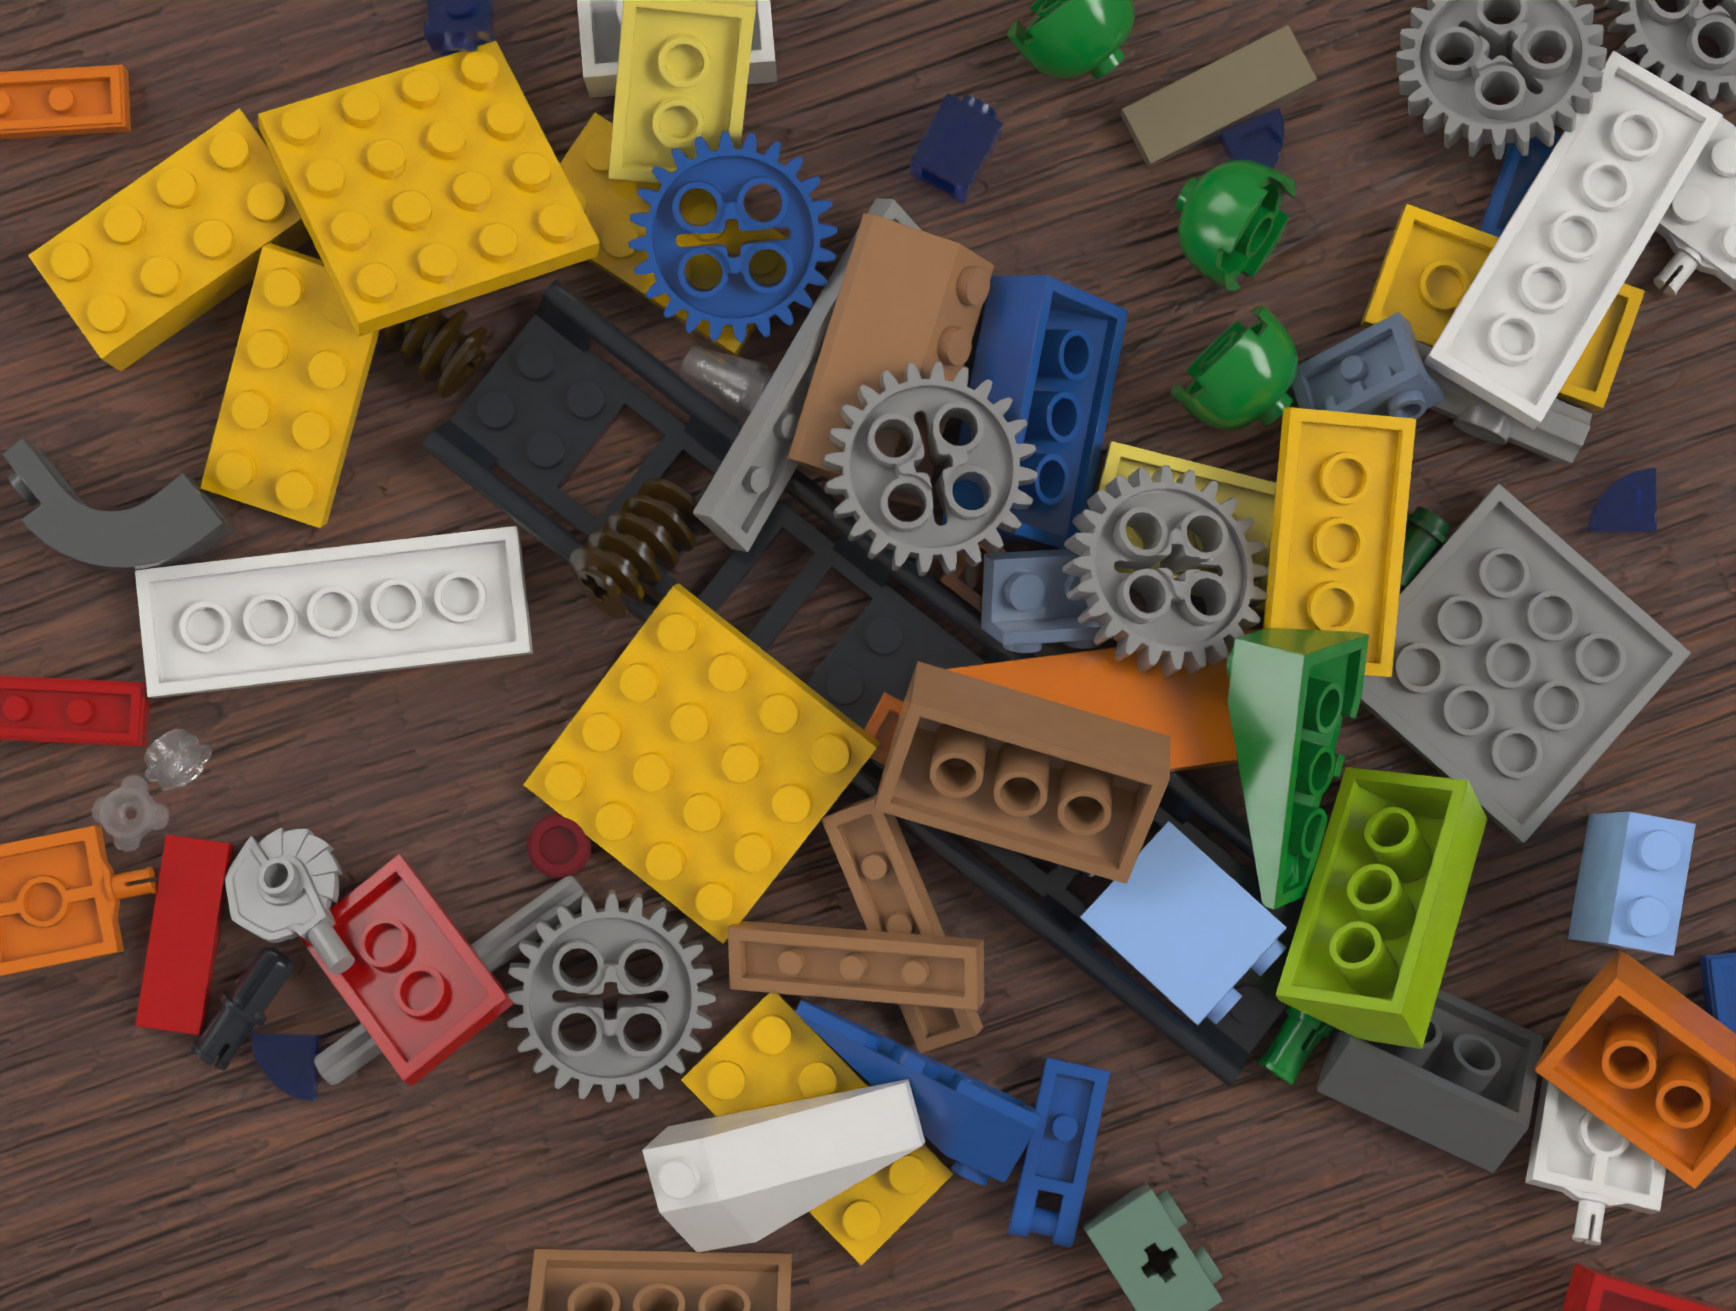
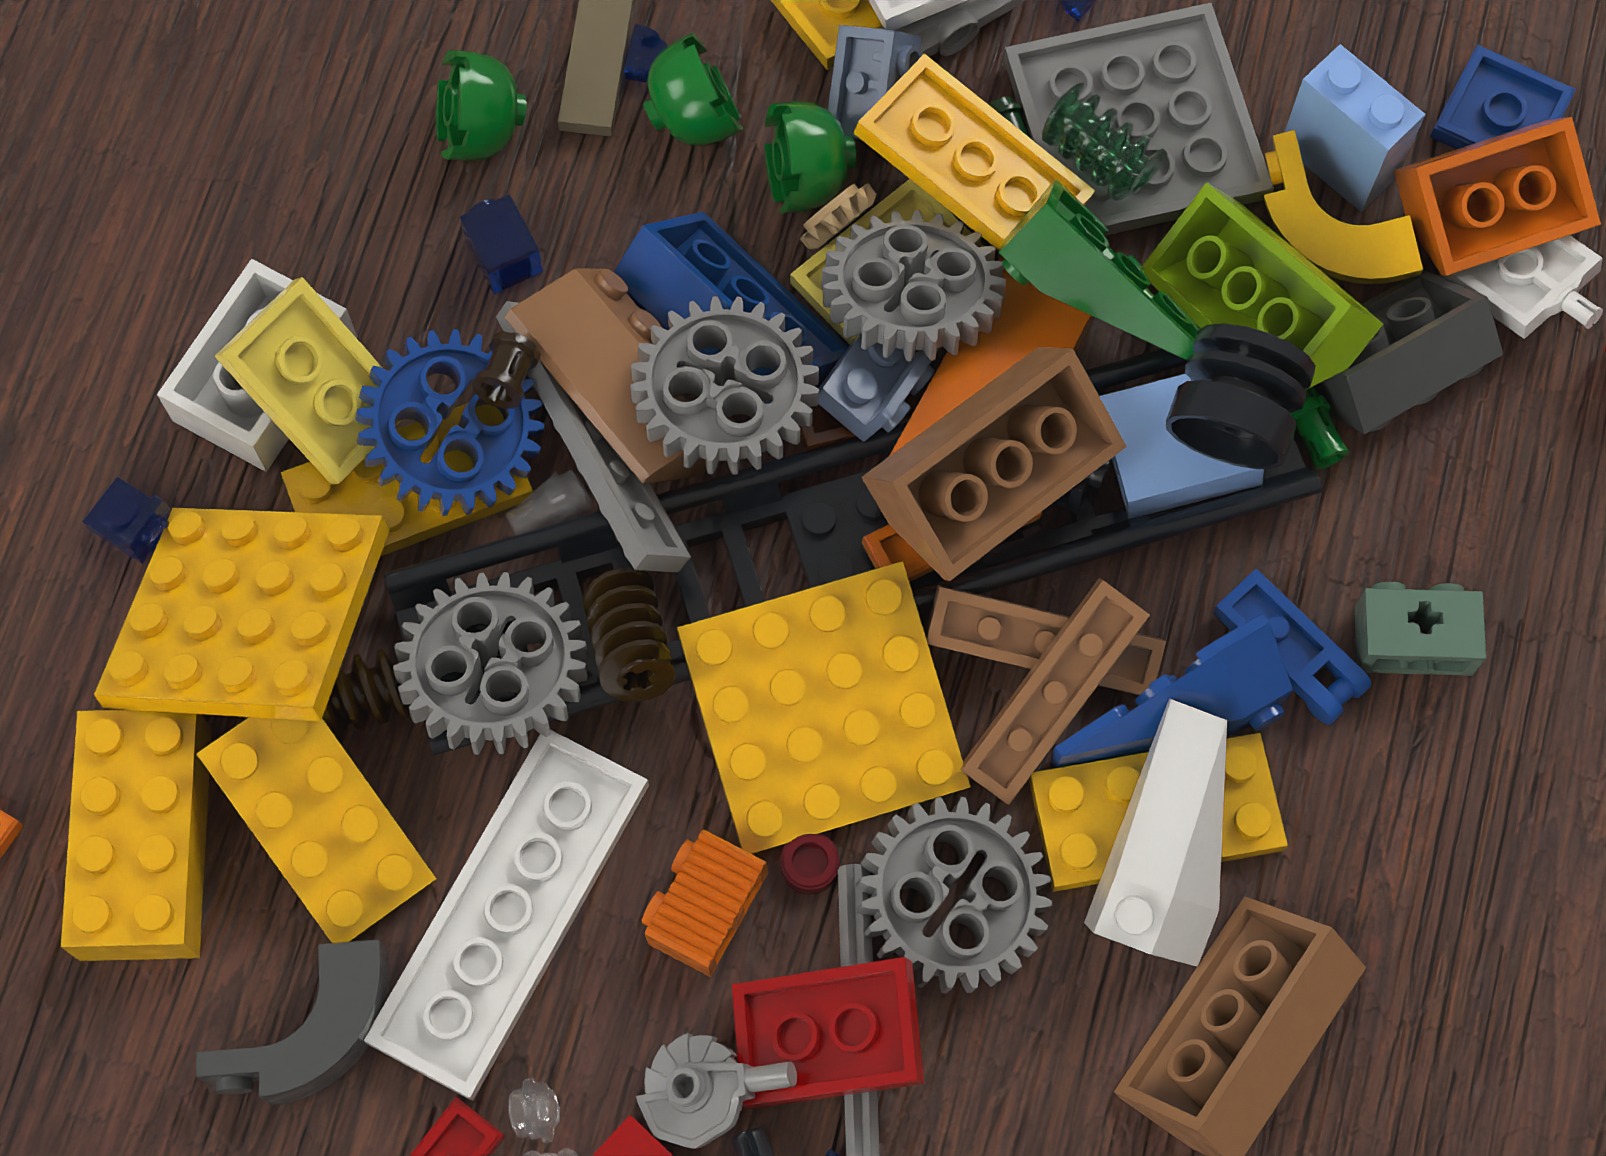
camera: 50 degrees left, 15 degrees down
(455, 779) = (704, 902): none -> orange brick
(518, 384) = (538, 677): none -> light grey gear
(807, 256) = (506, 370): none -> dark brown bush
(1199, 445) = (837, 215): none -> tan gear
(1235, 966) = (1240, 396): none -> black wheel
(1443, 651) = (1099, 146): none -> clear green piece
(1496, 929) = (1340, 250): none -> yellow arch

